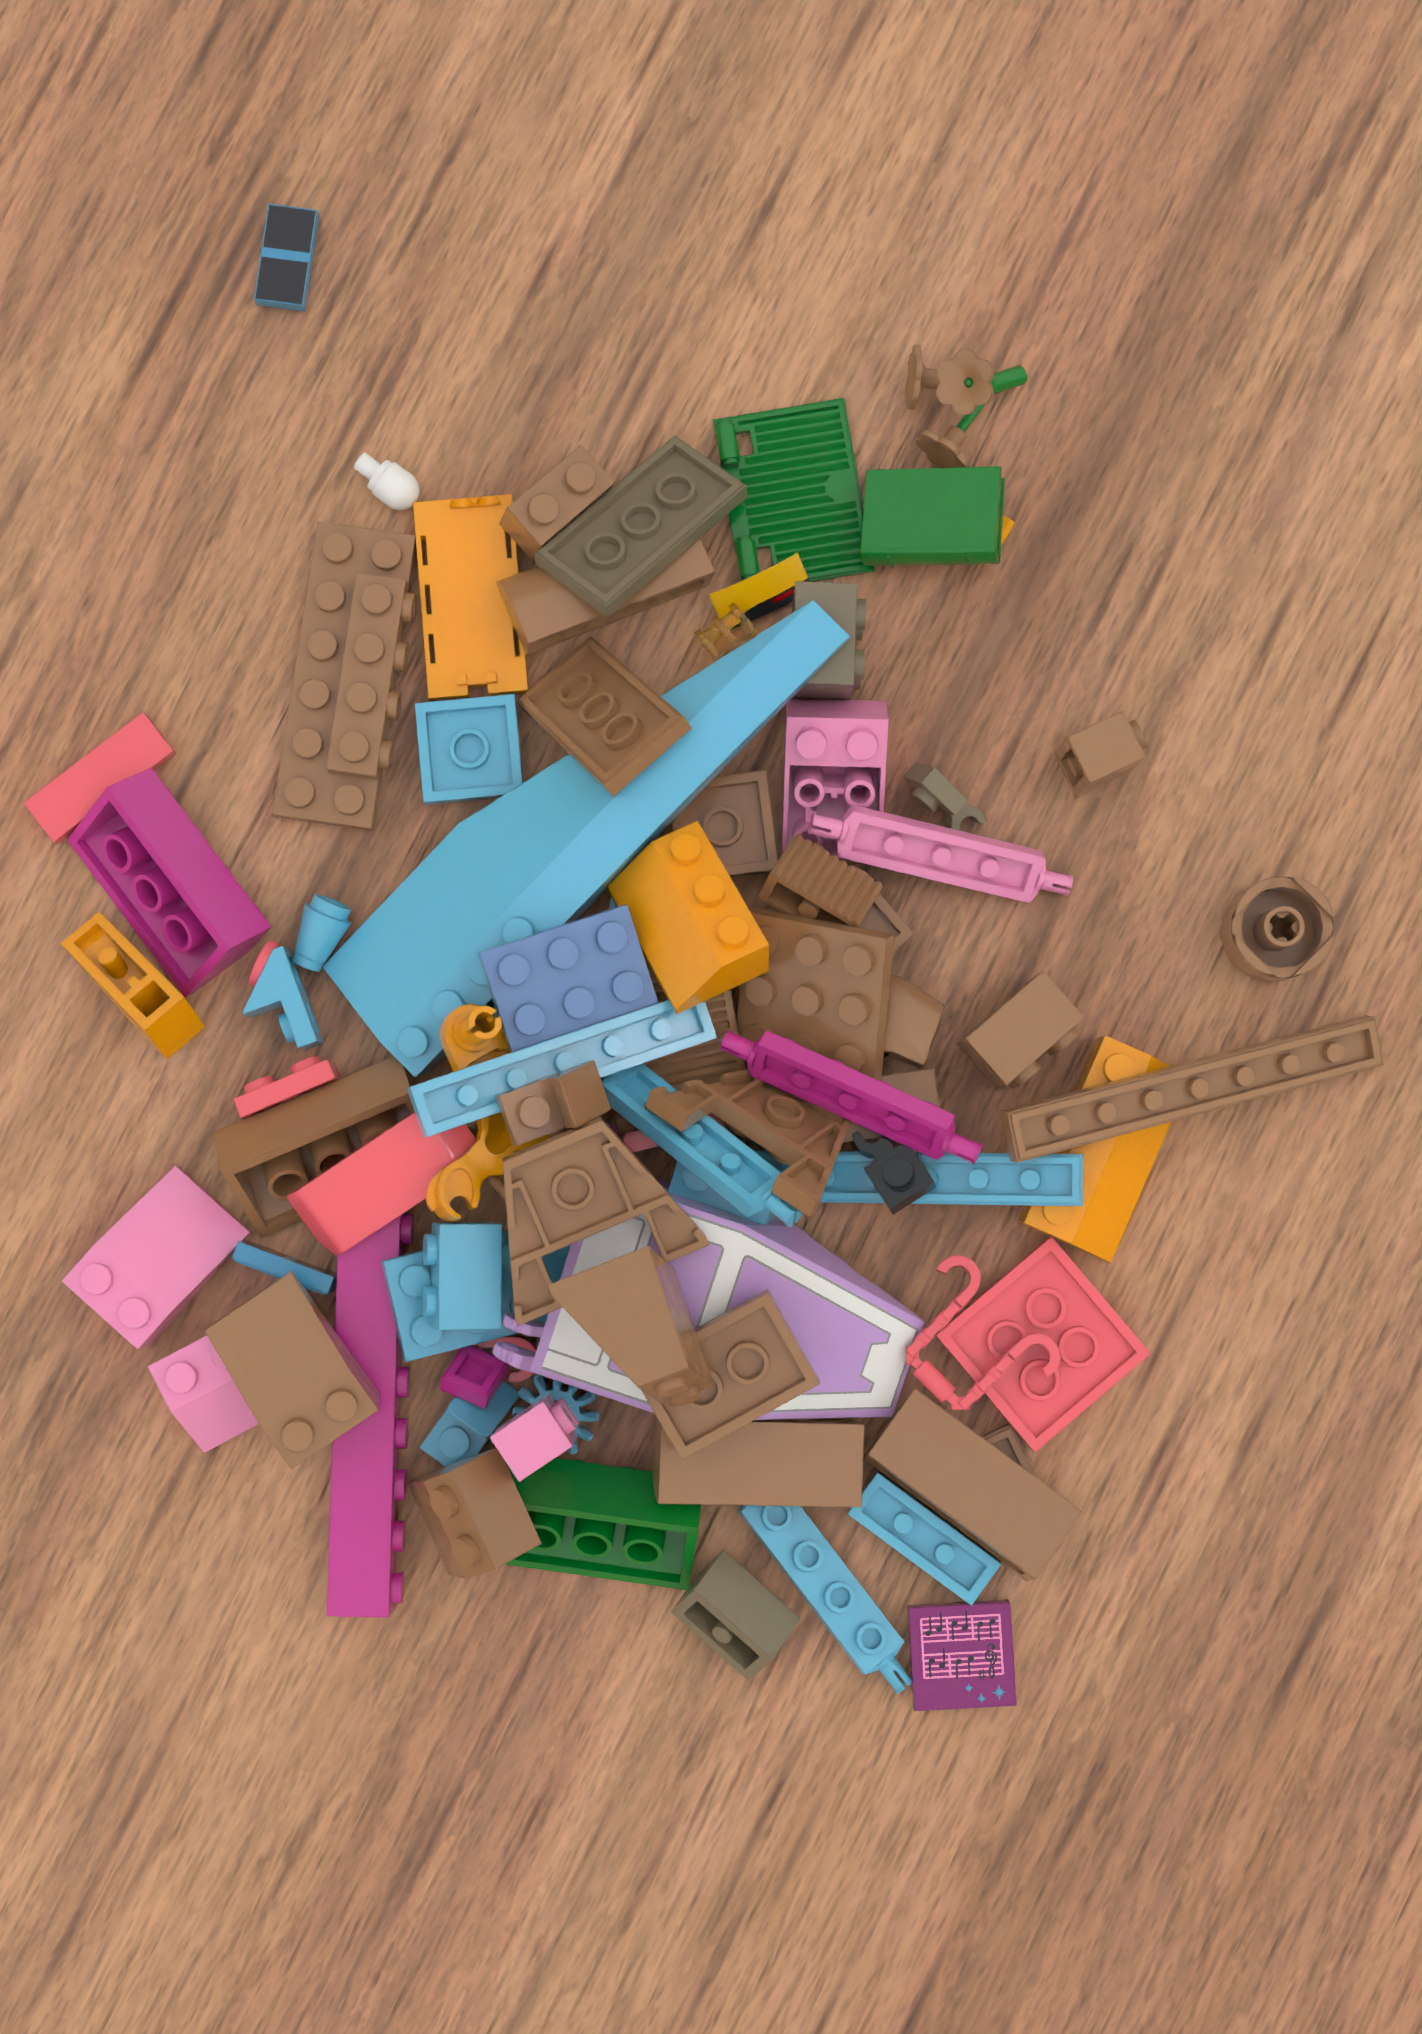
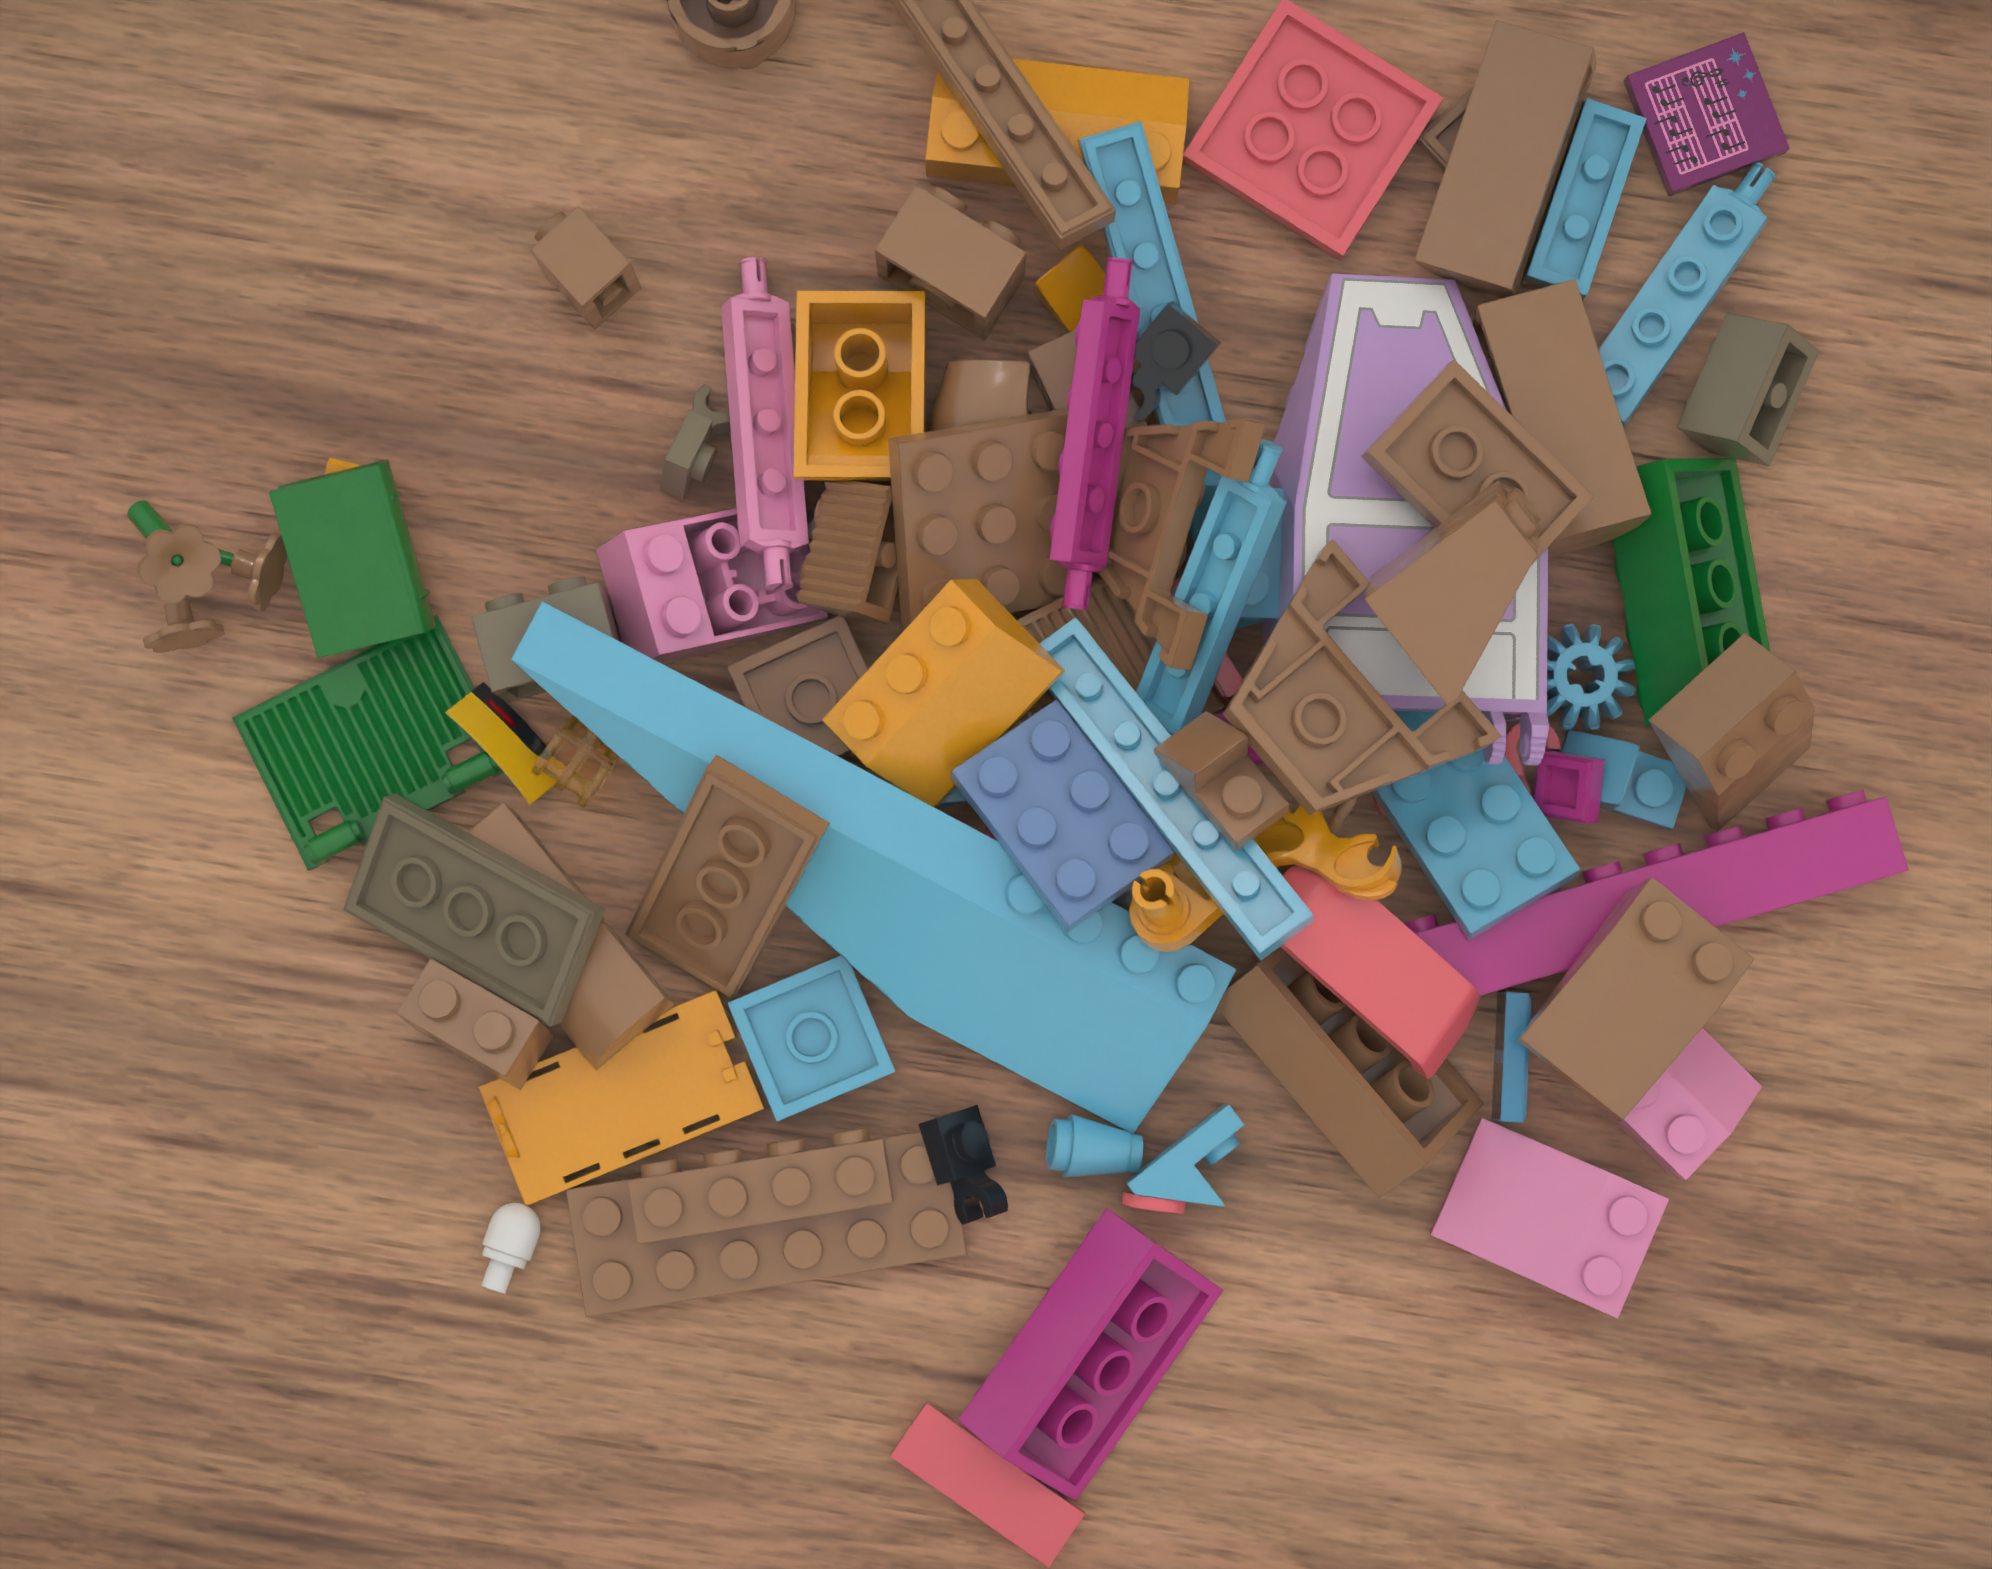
camera: 115 degrees left, 0 degrees up
(134, 985) = (1229, 1356): light orange slope -> none
(267, 1093) = (1312, 1149): coral plate -> none
(286, 257) = (262, 1465): black tile -> none
(347, 830) = (959, 1155): none -> black plate
(463, 1275) = (1458, 828): medium azure brick -> none
(536, 1435) = (1619, 680): bright pink brick -> none
(934, 1380) = (1398, 238): coral piece -> none
(949, 931) = (857, 380): none -> light orange slope
(977, 1119) = (1068, 284): none -> light orange slope

